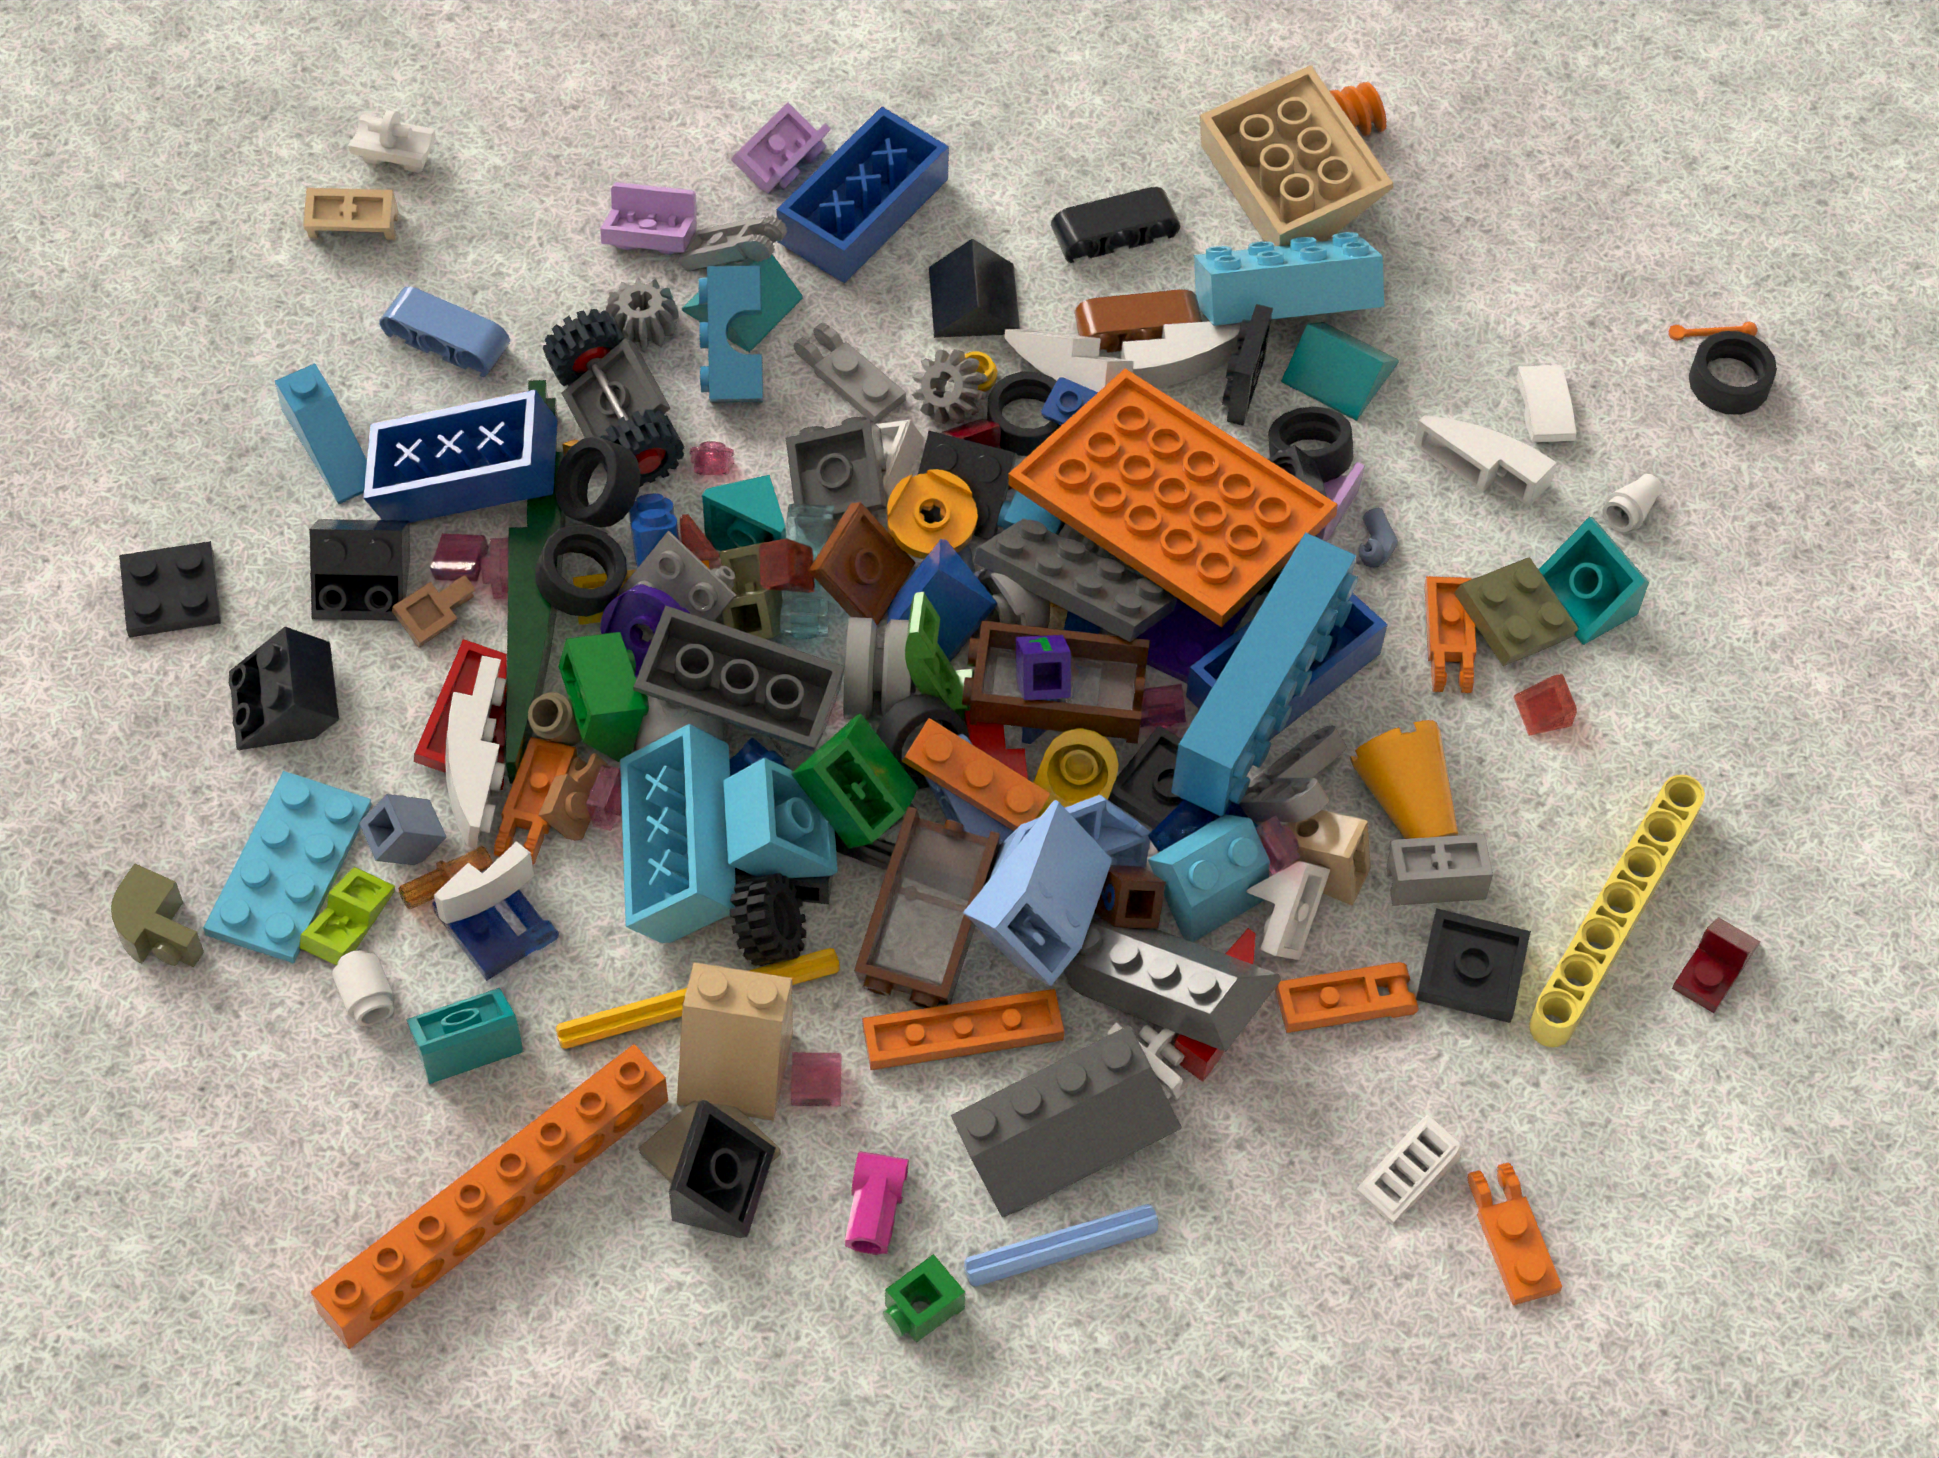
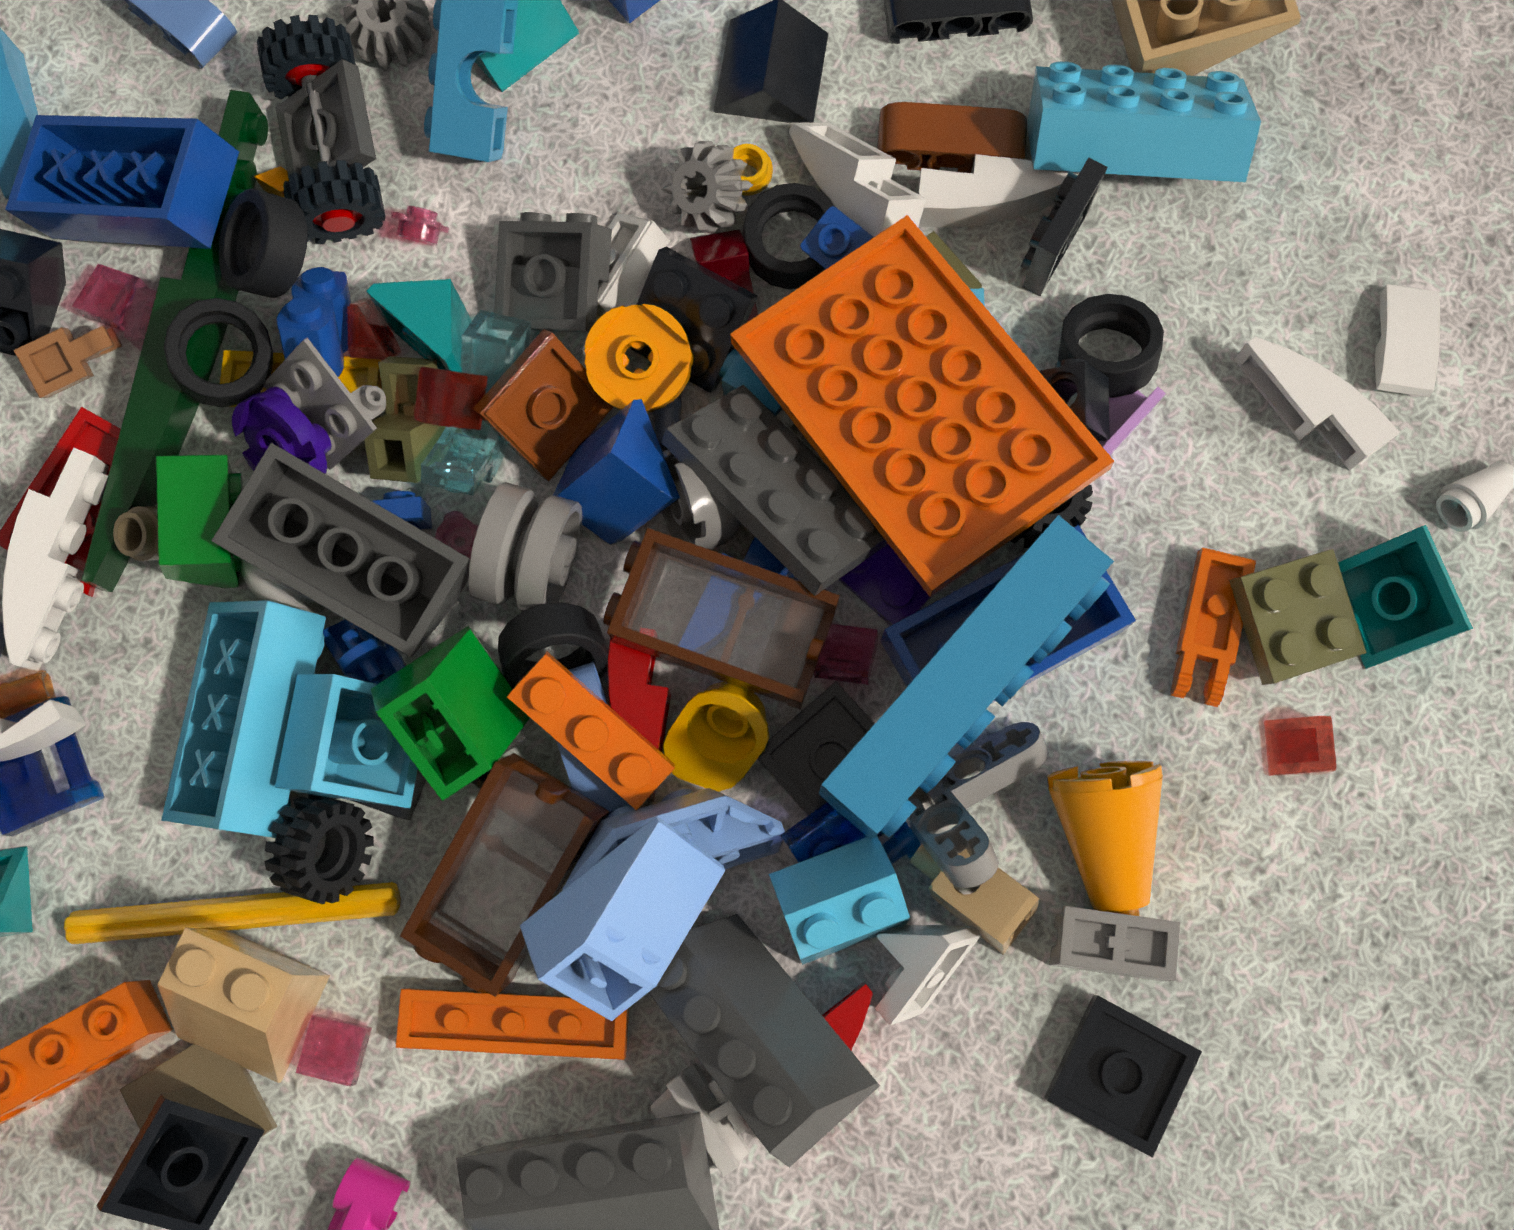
camera: 20 degrees right, 20 degrees up
(528, 792) = (115, 623): orange hinge -> none
(567, 798) = (152, 639): medium nougat plate -> none
(605, 798) = (184, 640): clear pink plate -> none
(851, 374) = (607, 146): light grey hinge -> none
(926, 660) = (572, 566): bright green slope -> none
(1043, 667) = (701, 608): dark purple brick -> none
(1131, 897) = (741, 910): reddish brown brick -> none
(1279, 844) = (923, 904): clear pink plate -> none
(1337, 369) = (1170, 244): teal slope -> none
(1345, 997) = (961, 1082): orange plate -> none
(1382, 539) = (1163, 483): sand blue arm -> none
(1610, 927) = (1341, 1035): light yellow beam -> none
(1715, 964) = (1416, 1133): dark red slope -> none

